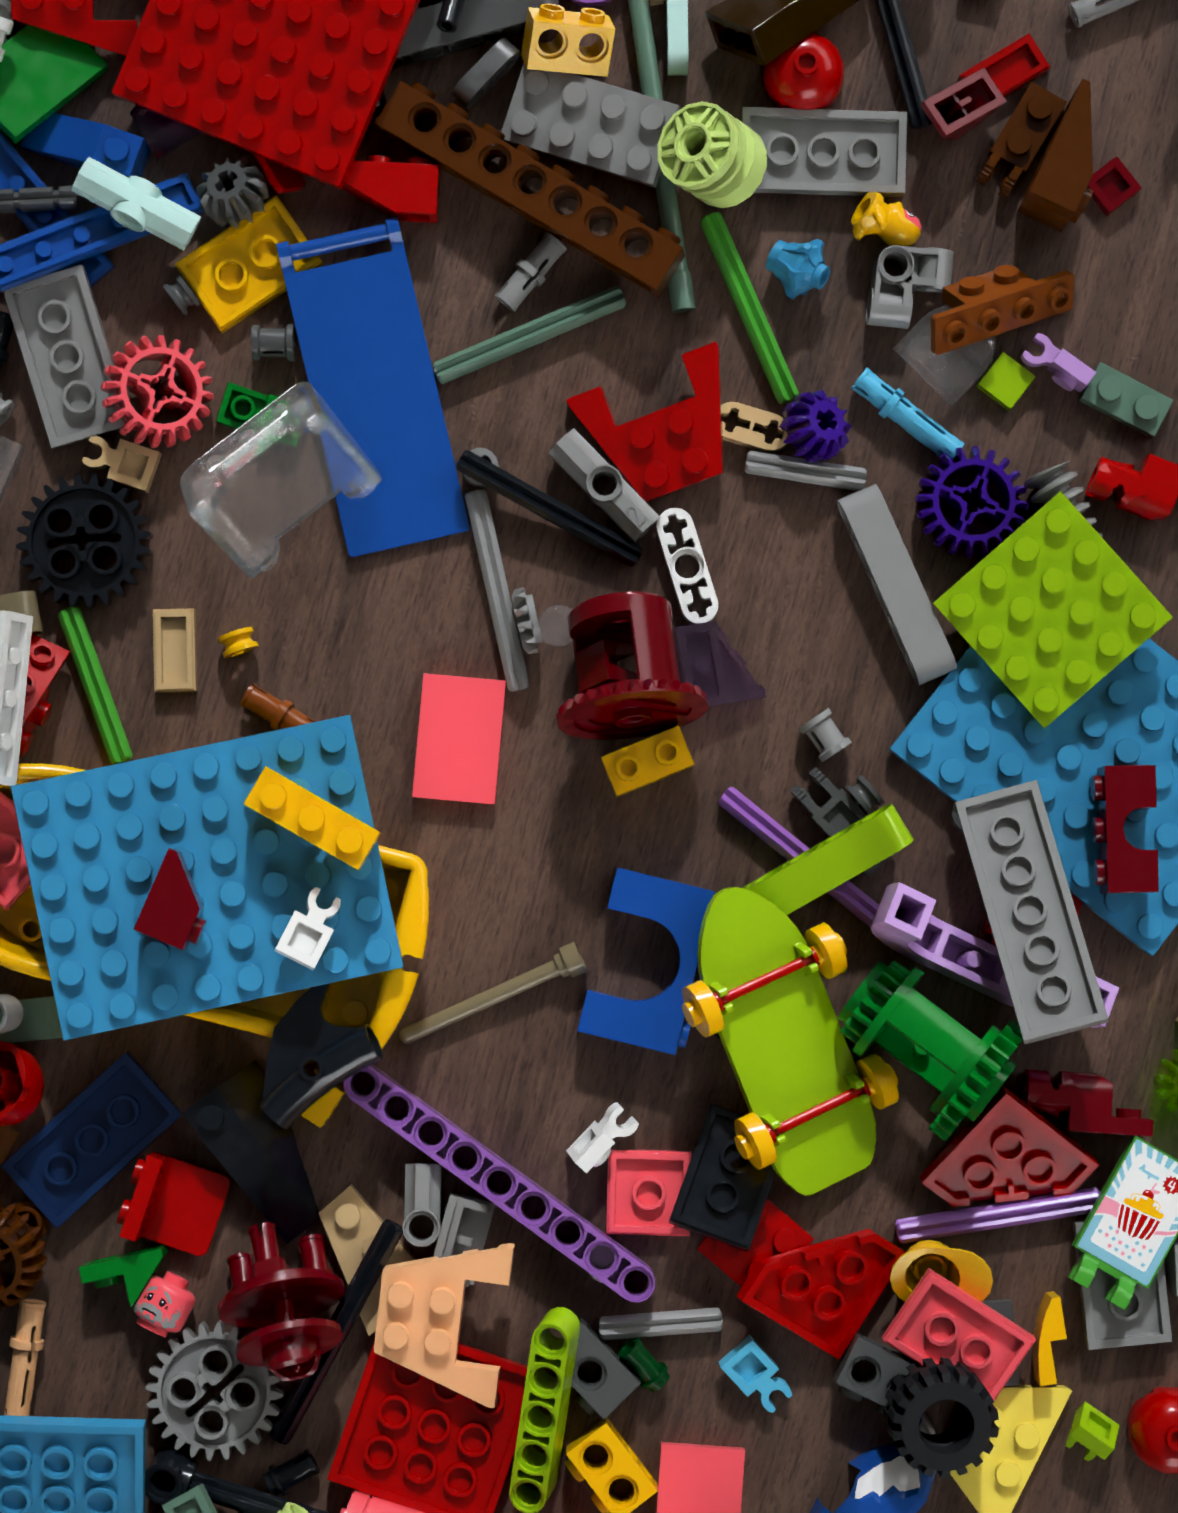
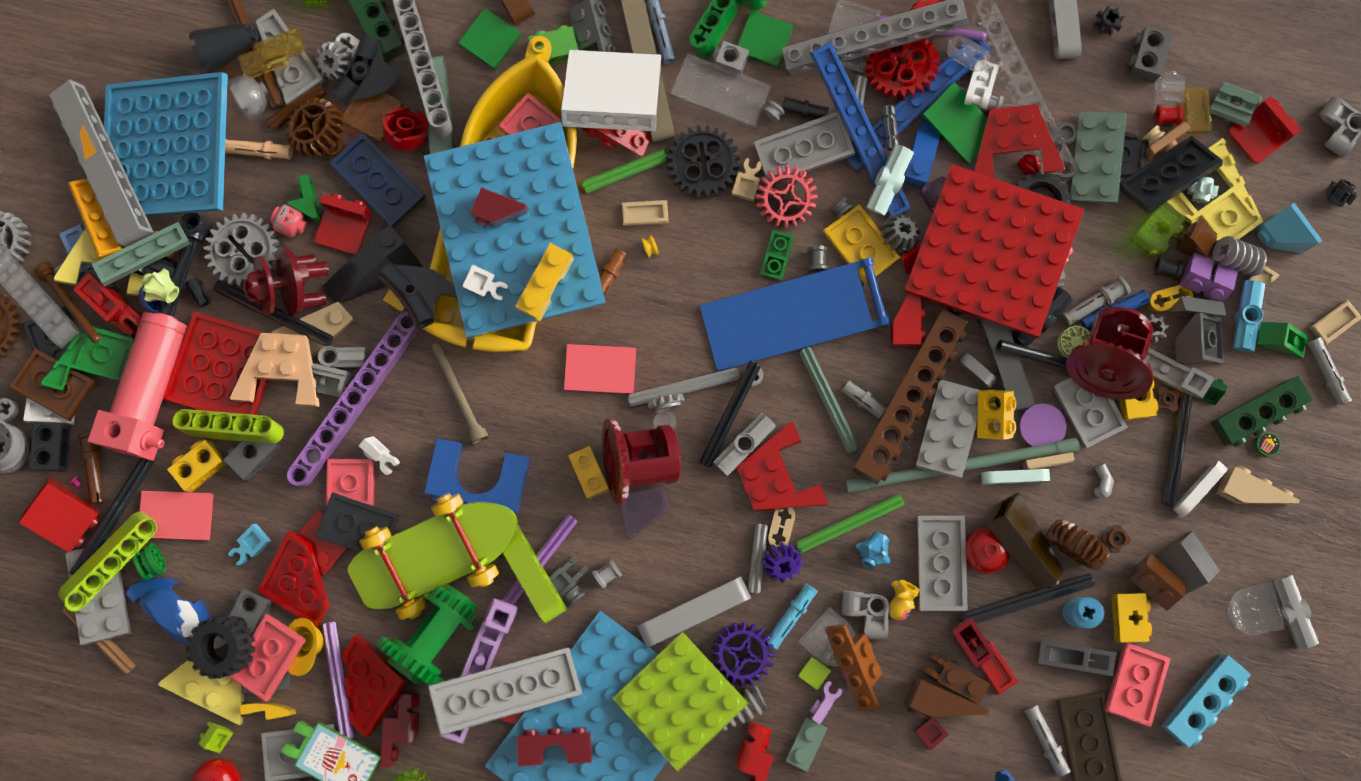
camera: 90 degrees right, 5 degrees down
(275, 476) = (740, 260): clear windscreen -> none
(651, 1373) = (250, 486): dark green pin -> none
(660, 1323) = (277, 491): light grey axle -> none
(667, 540) = (715, 481): white beam -> none
(712, 155) = (934, 497): yellowish green wheel -> none

